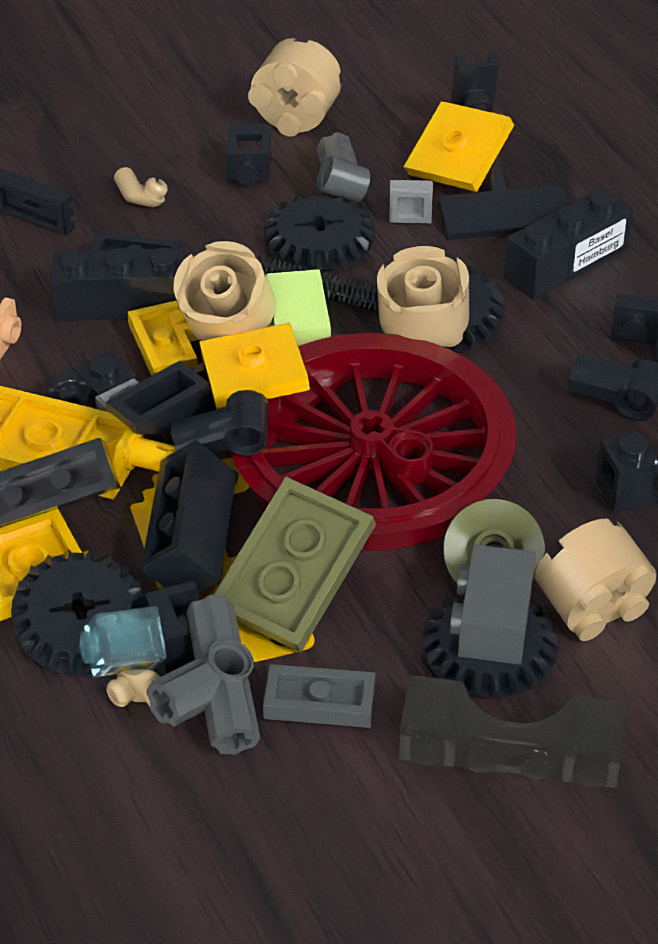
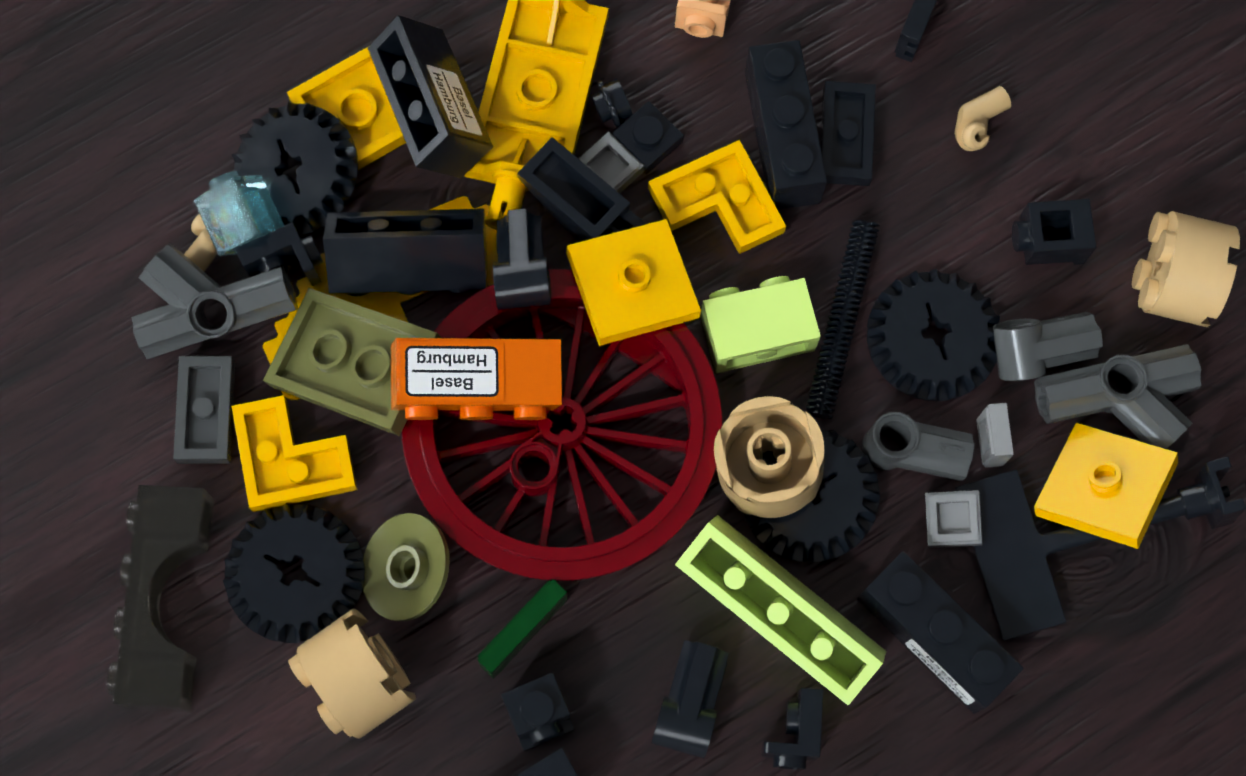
camera: 80 degrees right, 30 degrees up
(223, 291) = (728, 233): tan brick -> none
(337, 447) = (476, 377): none -> orange brick
(385, 133) = (1143, 408): none -> dark grey piece
(385, 643) = (280, 470): none -> yellow plate
(419, 228) = (923, 447): none -> dark grey piece
(474, 234) = (953, 519): none -> light grey tile
(495, 604) = (304, 567): dark grey brick -> none
(546, 315) = (782, 609): none -> yellowish green brick
(555, 479) = (522, 628): none -> dark green tile

